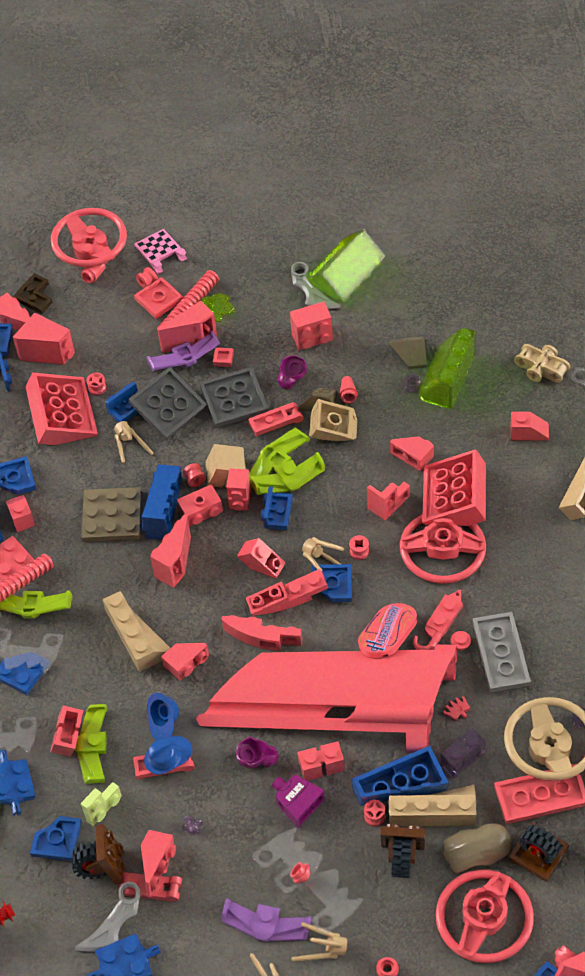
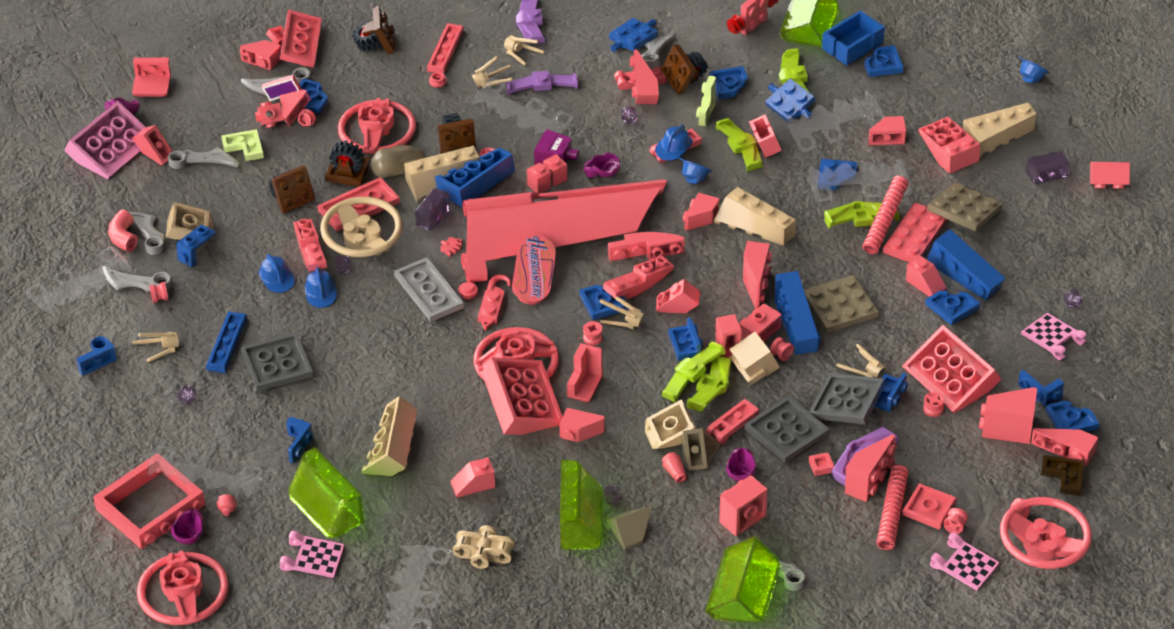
camera: 155 degrees right, 10 degrees down
(219, 305) = (860, 517): clear neon green plate -> none
(300, 872) = (527, 103): coral plate -> none

